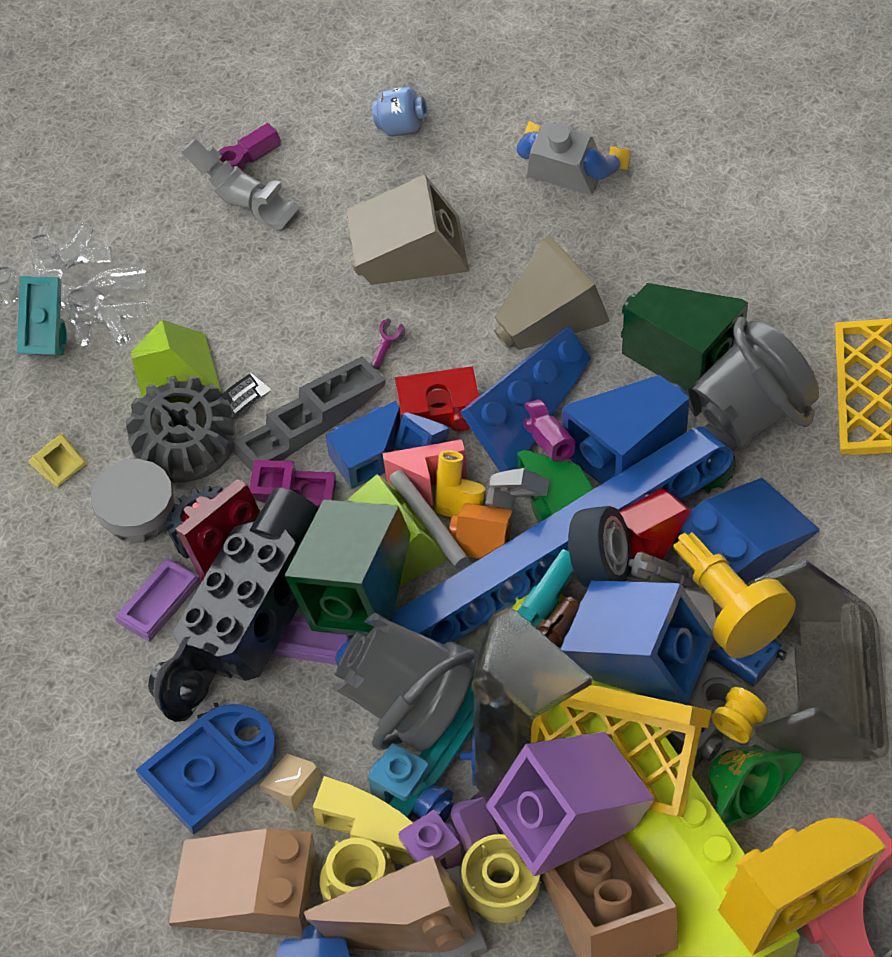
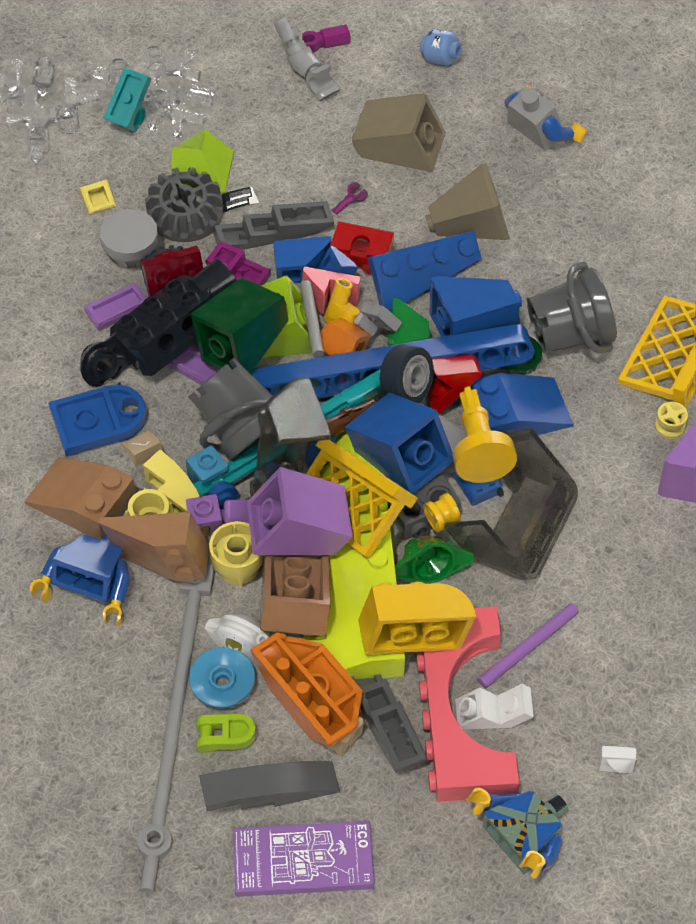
camera: 20 degrees right, 0 degrees up
(549, 432) = (419, 293): magenta bar -> none
(658, 570) = (444, 407): light grey axle -> none
(679, 330) = (543, 255): dark green slope -> none

